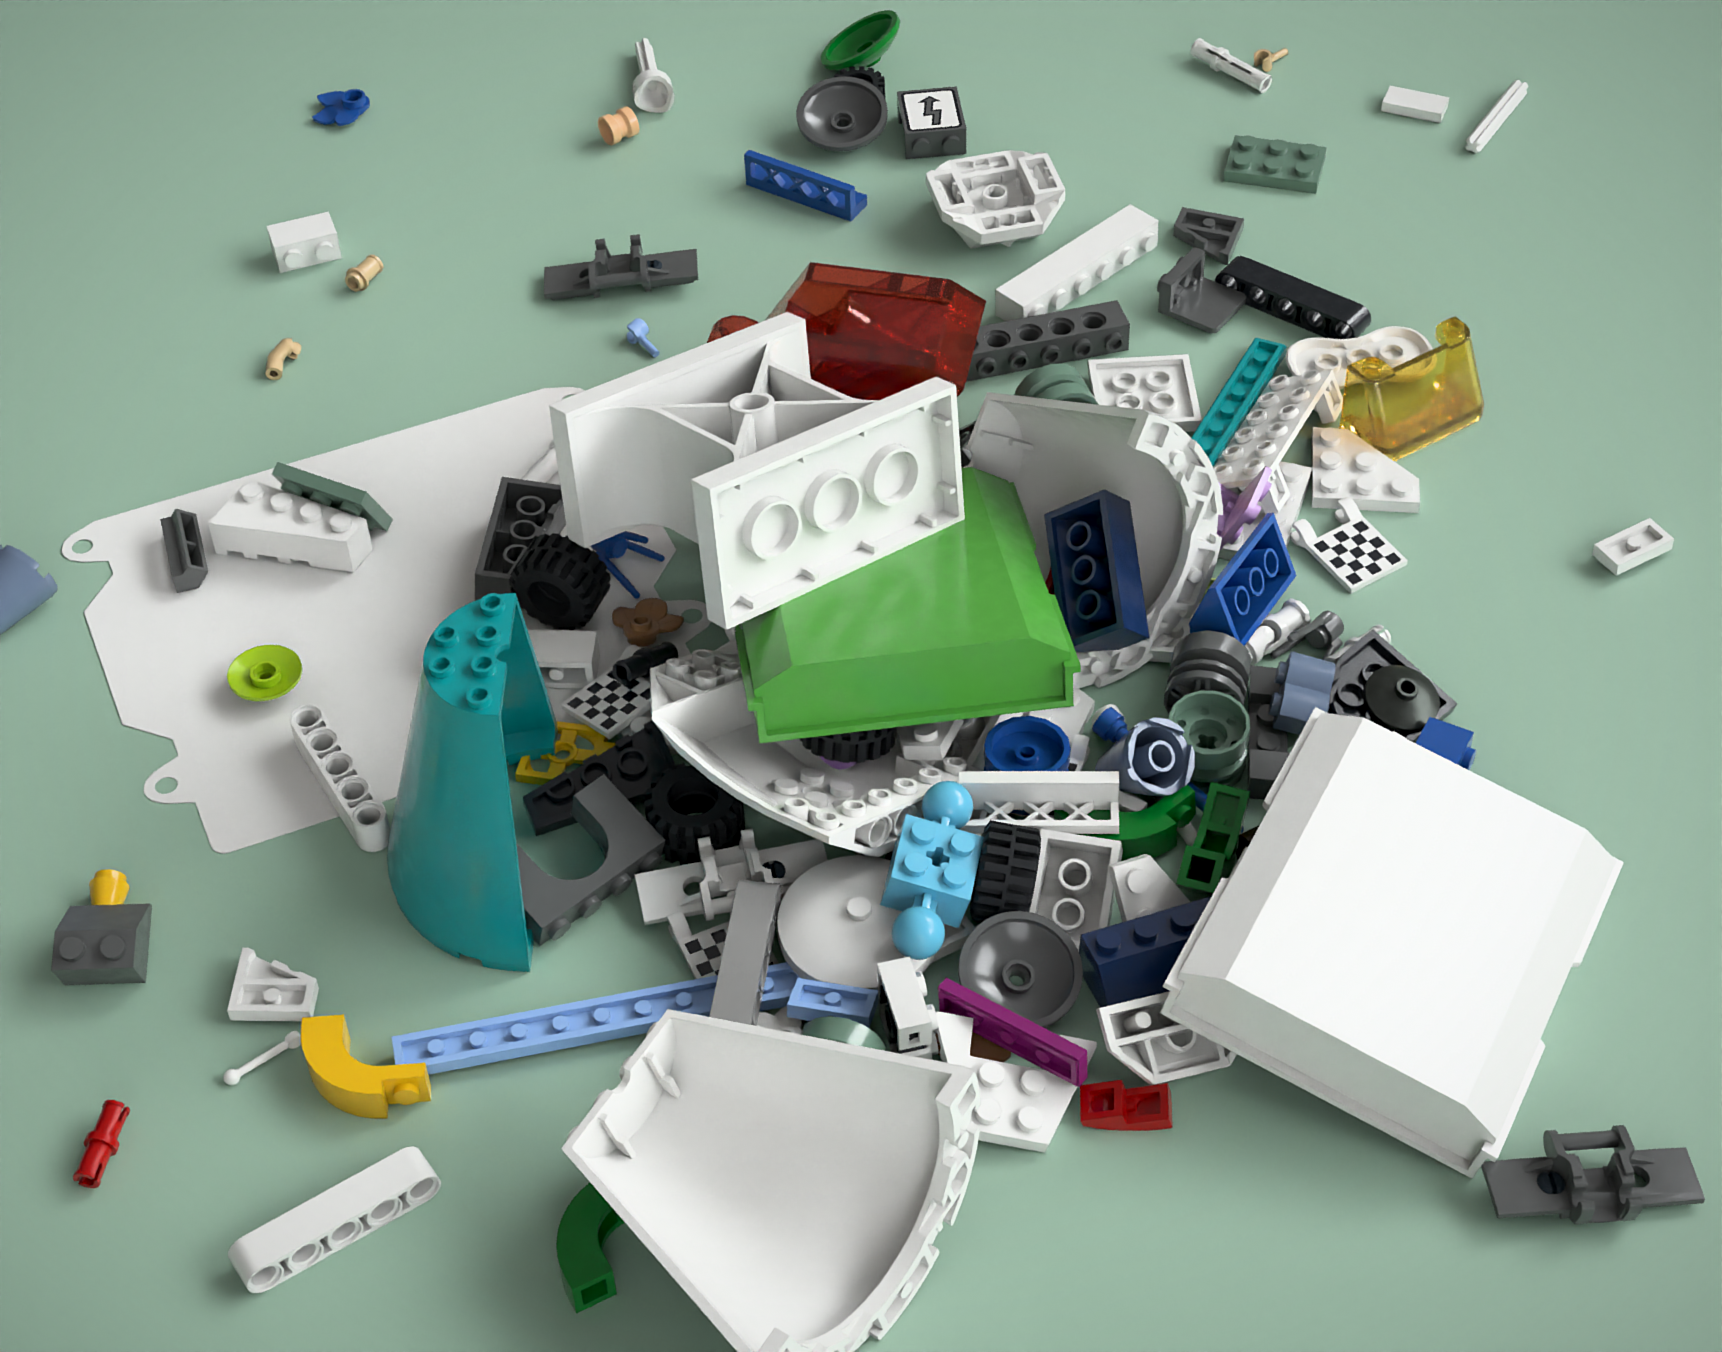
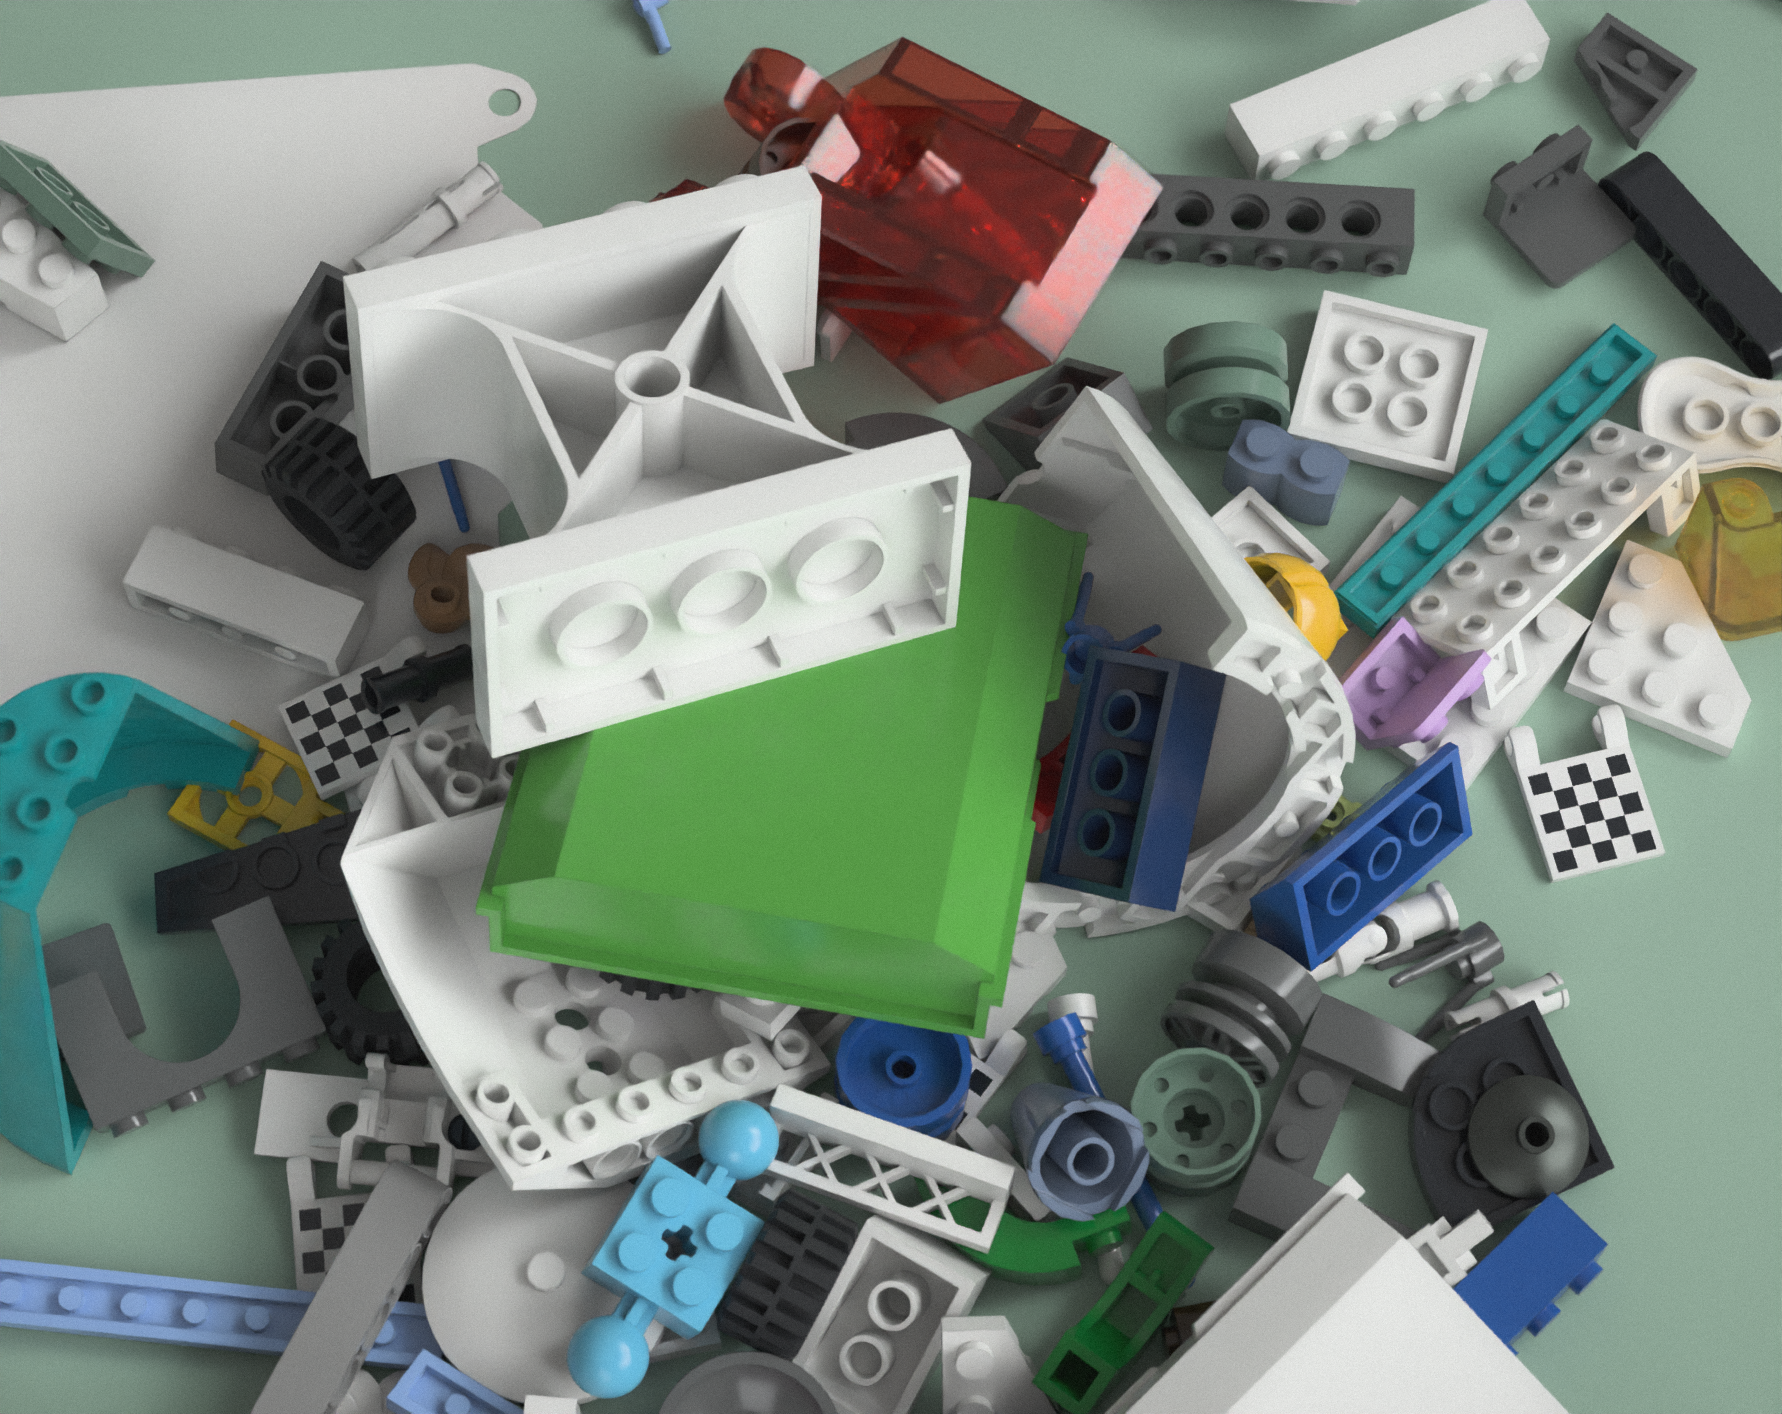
camera: 15 degrees right, 20 degrees up
(1036, 523) = (1084, 635): none -> blue plant
(1303, 686) = (1373, 1087): sand blue brick -> none

